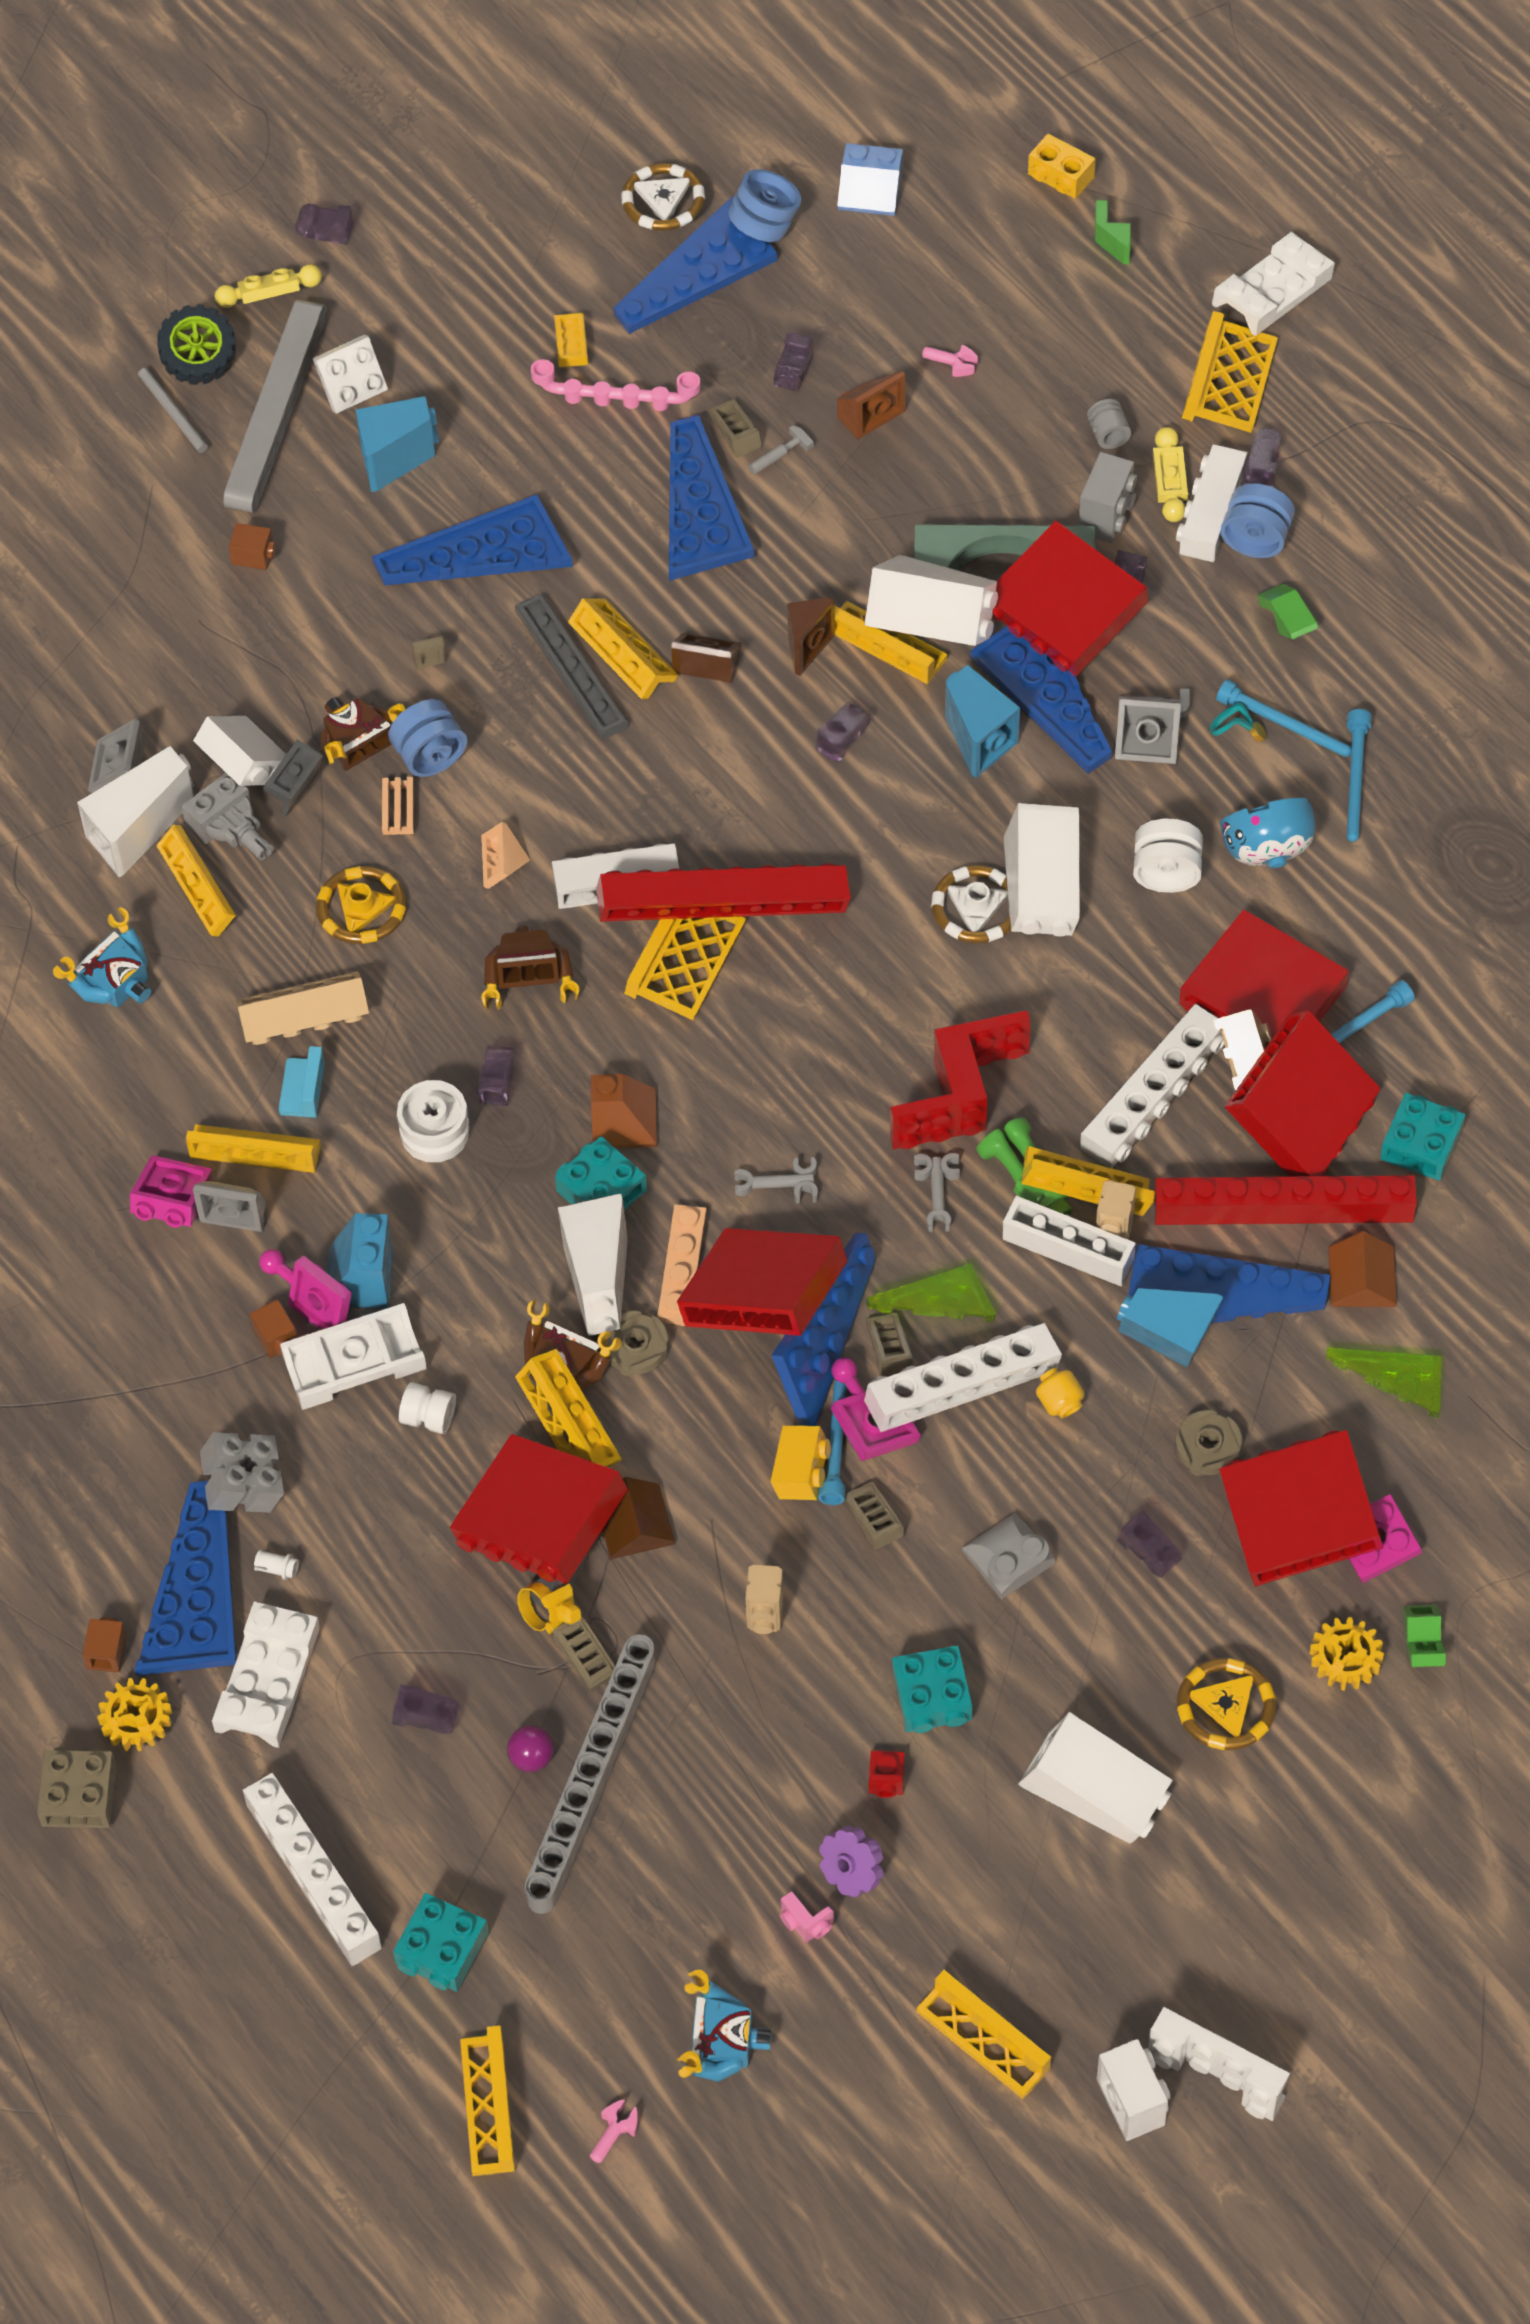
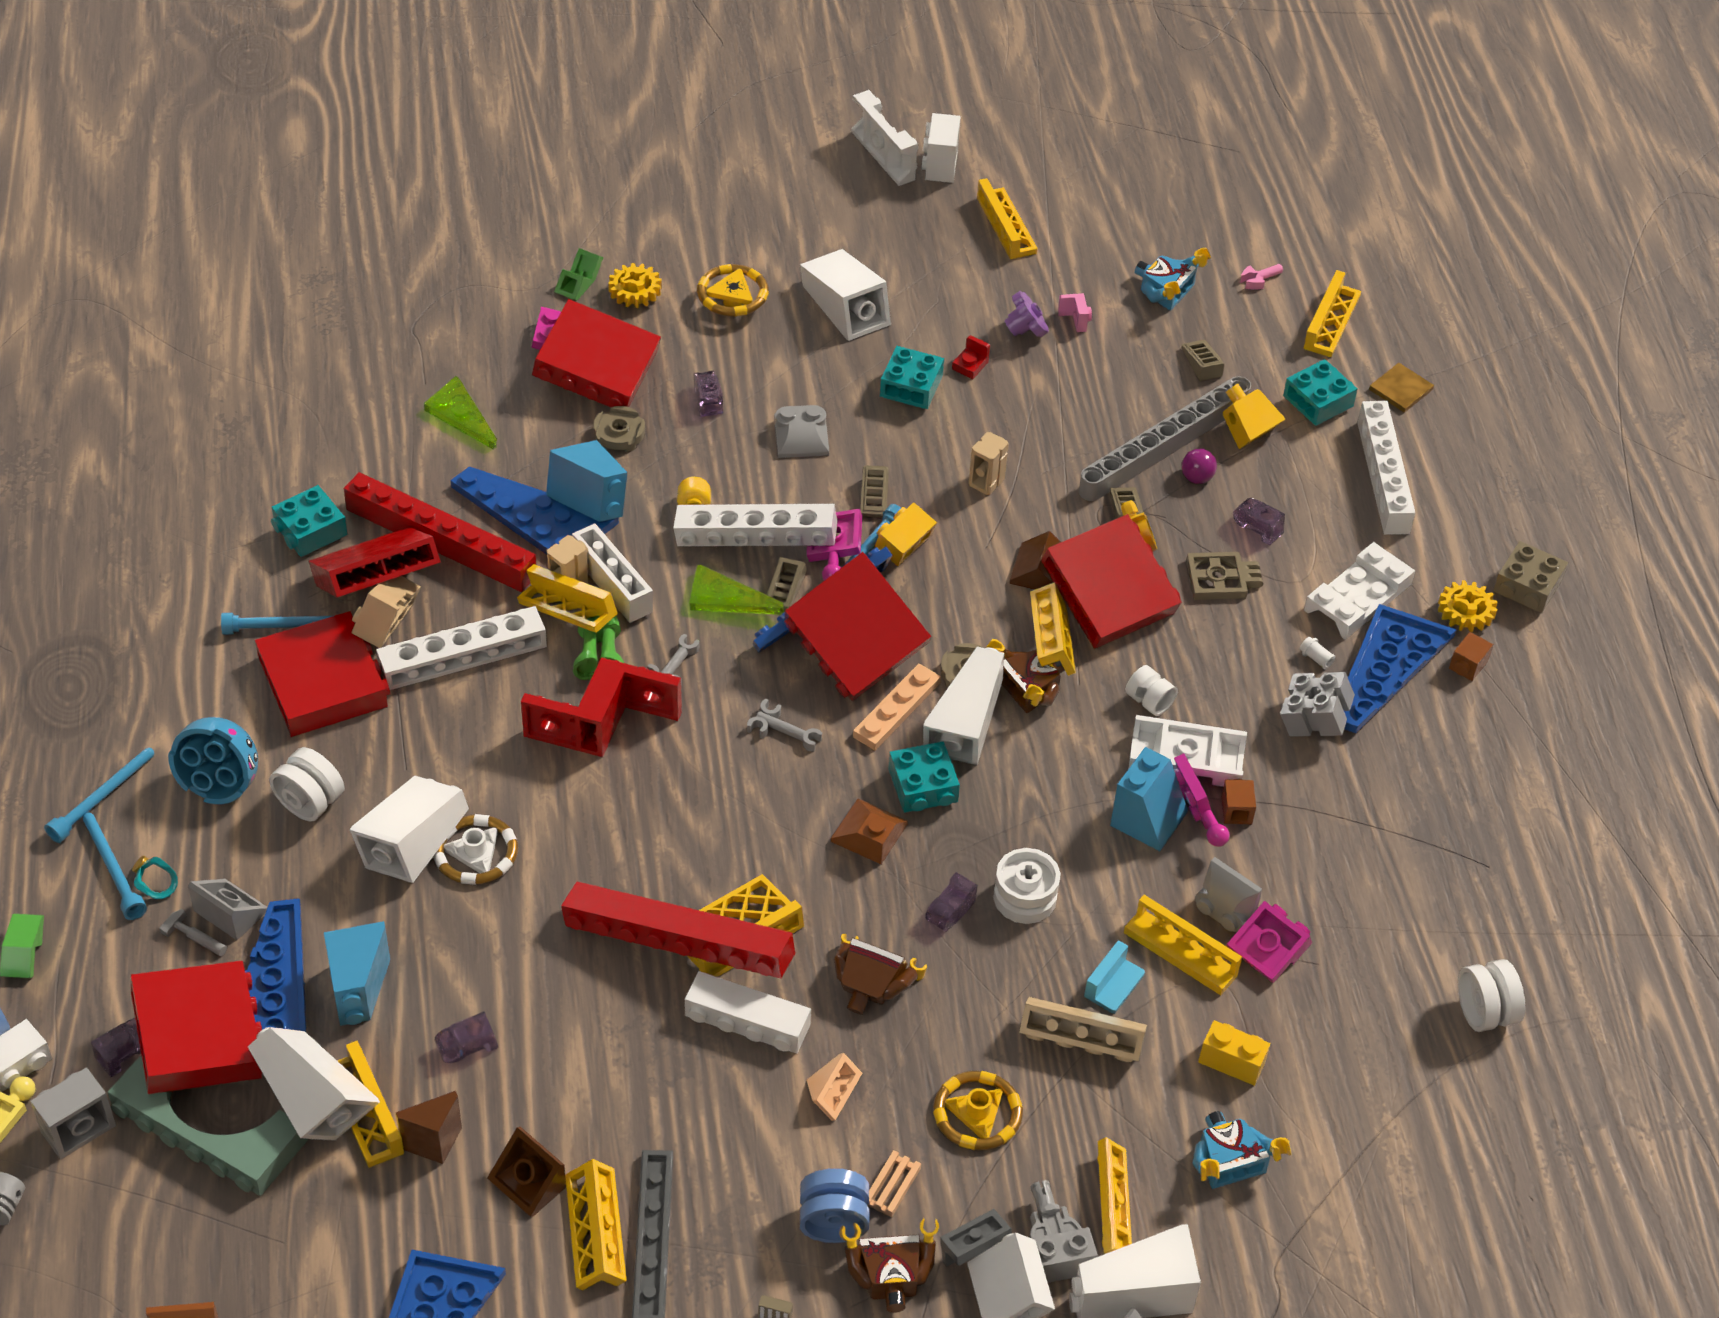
camera: 155 degrees left, 10 degrees down
(152, 1061) = (1234, 1052): none -> yellow brick
(351, 2034) = (1401, 387): none -> pearl gold piece
(408, 1631) = (1245, 571): none -> dark tan piece
(503, 1849) = (1250, 415): none -> yellow torso
(594, 1934) = (1205, 364): none -> dark tan slope
(1362, 1272) = (429, 473): dark orange slope -> none

